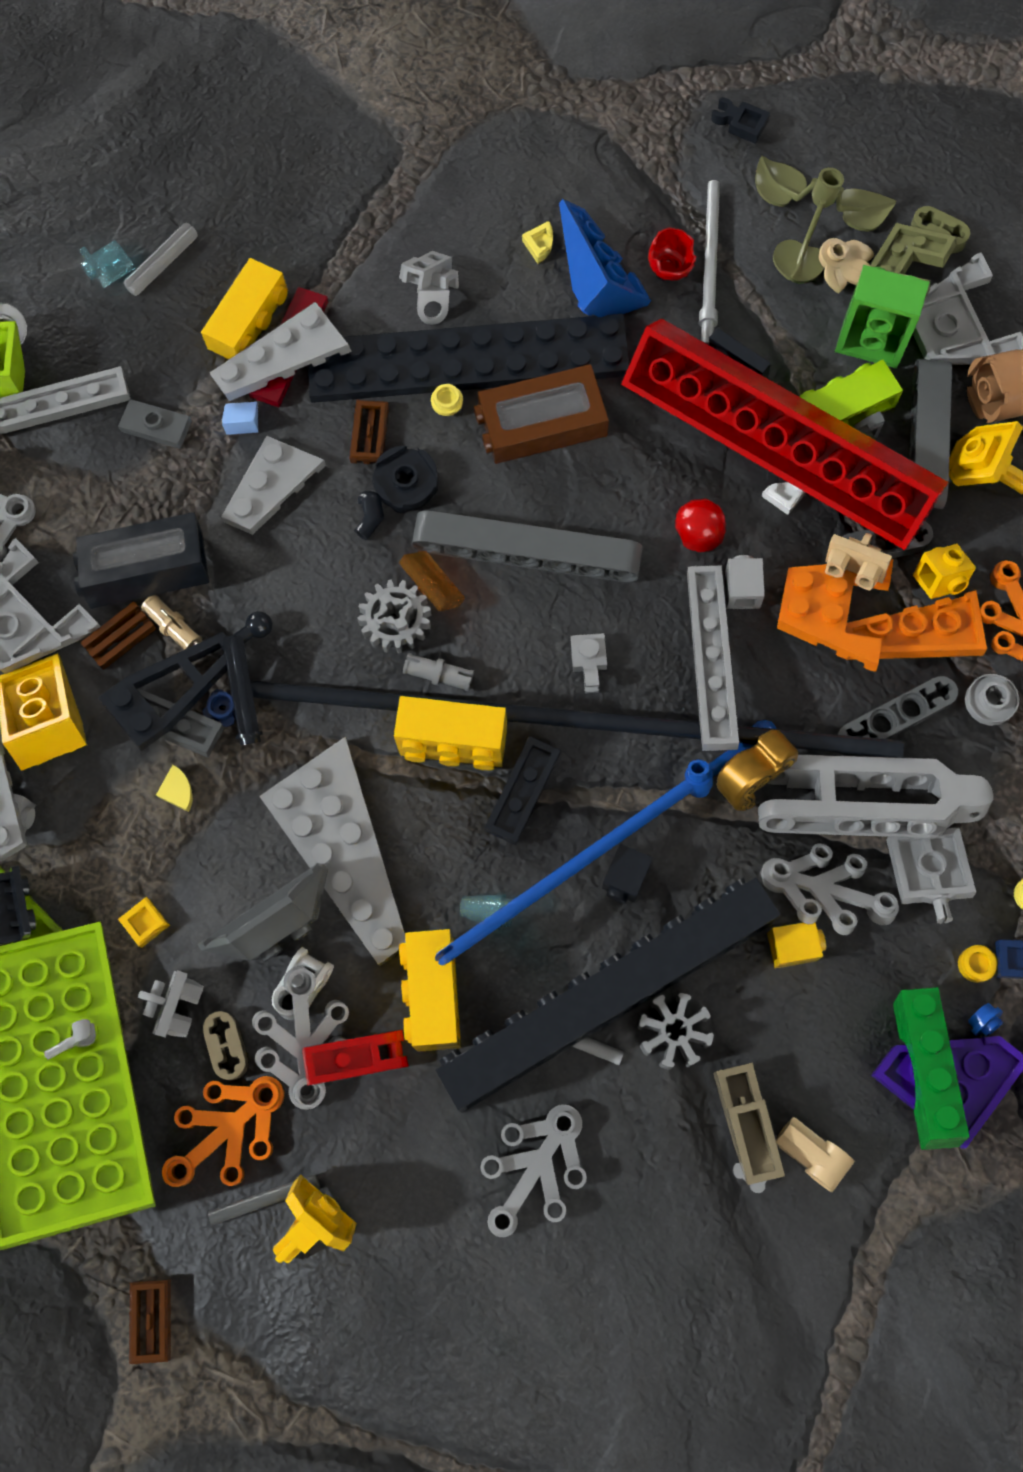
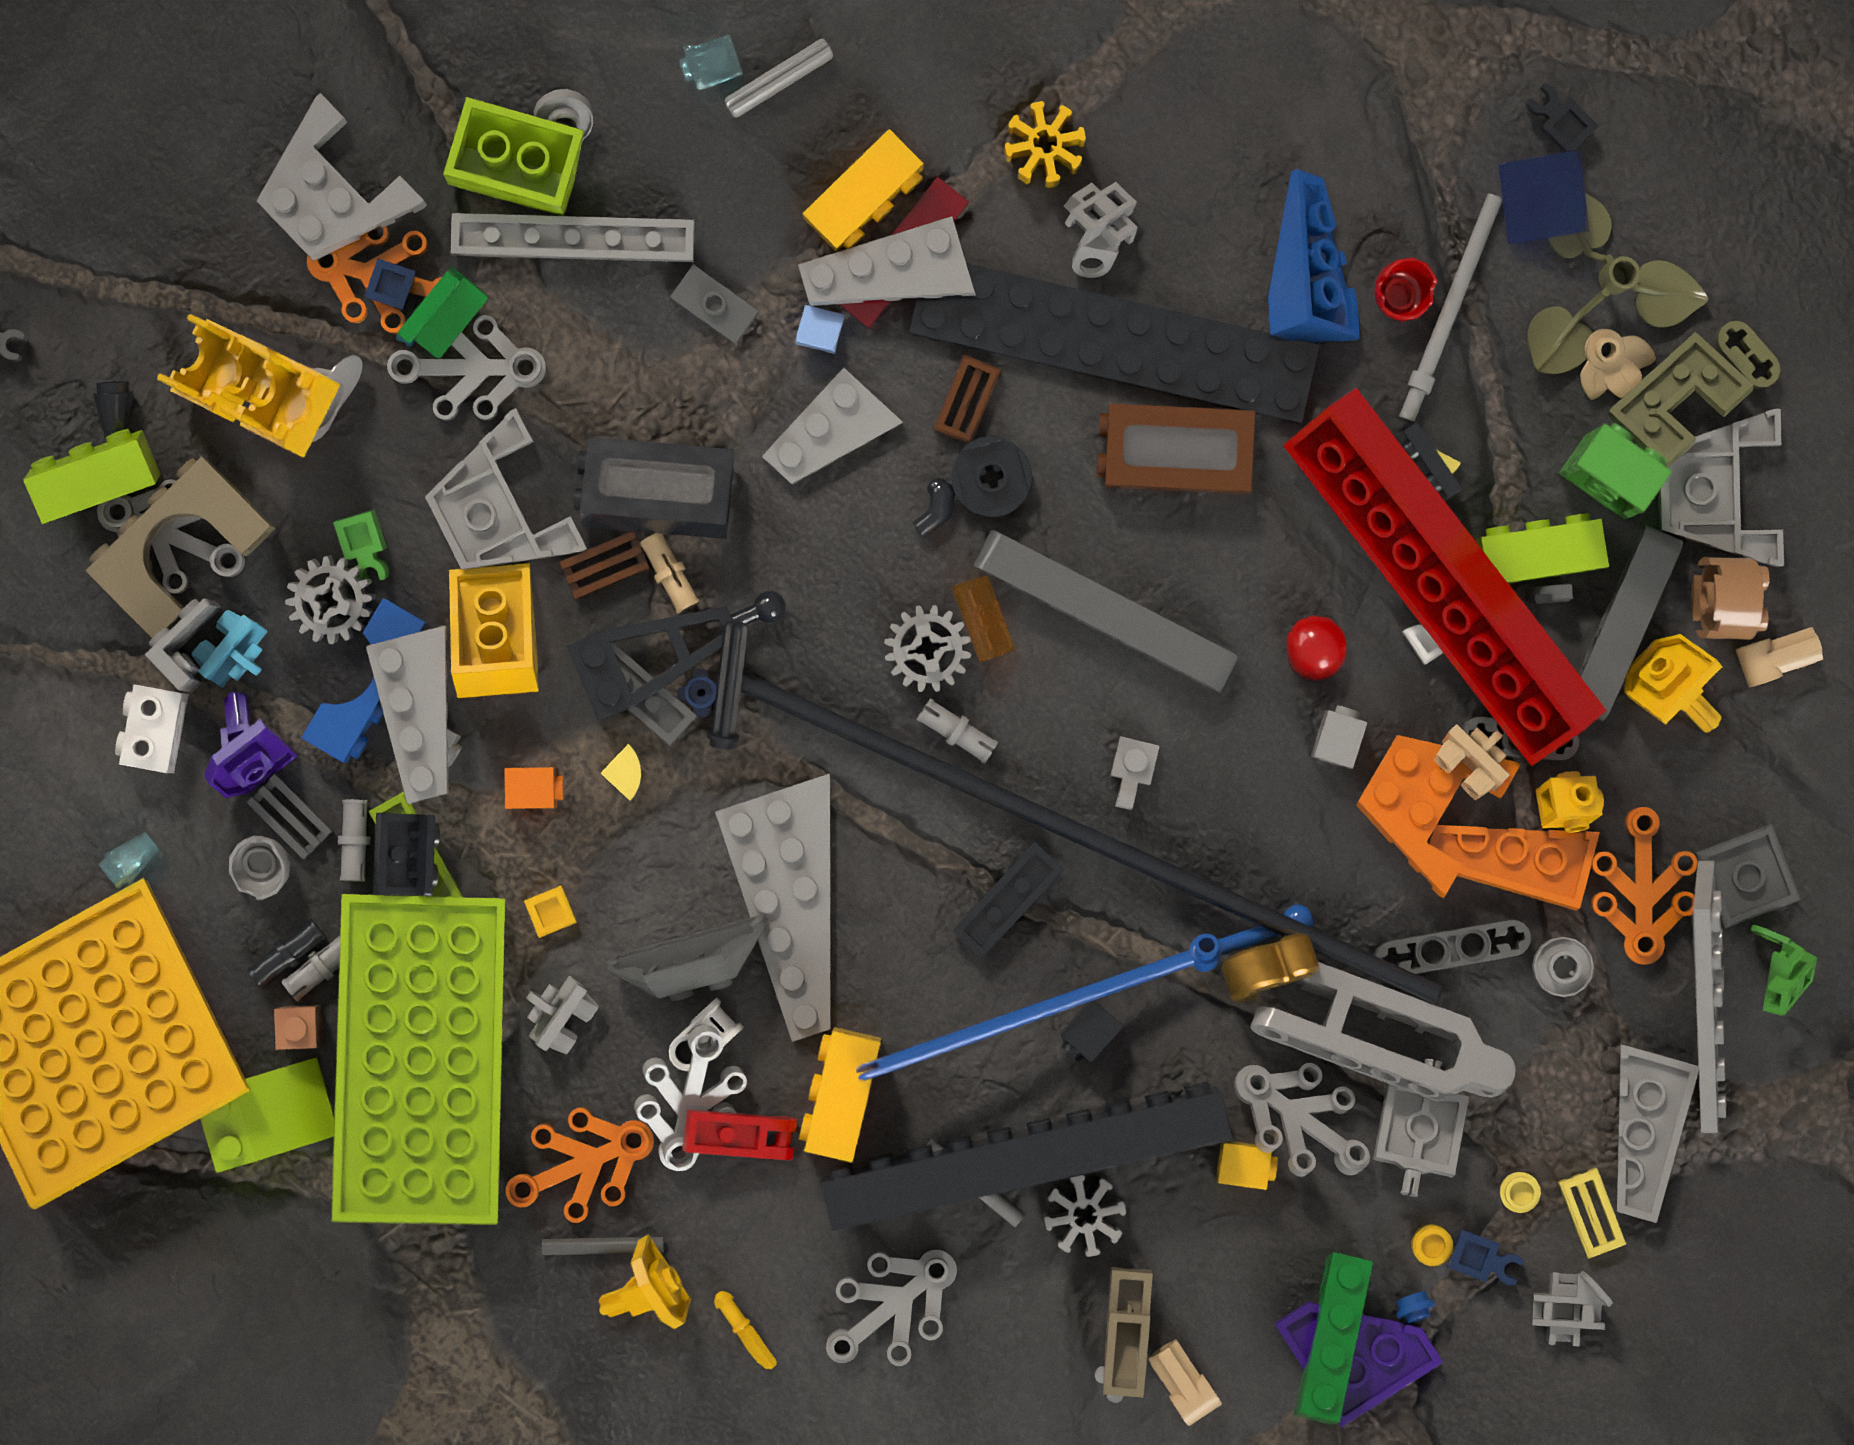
camera: 10 degrees right, 15 degrees up
(82, 1036) = (463, 1025): light grey hand -> none
(101, 823) = (533, 788): none -> orange brick
(164, 1321) = (463, 1295): reddish brown tile -> none
(217, 1048) = (594, 1075): dark tan beam -> none
(371, 241) = (1052, 134): none -> yellow gear
(412, 1236) = (744, 1330): none -> yellow piece
(446, 400) = (1071, 389): light yellow plate -> none
(451, 732) = (949, 816): yellow brick -> none
(482, 906) = (927, 1019): clear light blue cone -> none
(539, 241) = (1253, 207): light yellow tile -> none
(712, 659) = (1268, 820): light grey plate -> none
(750, 168) = (1544, 197): none -> clear blue tile

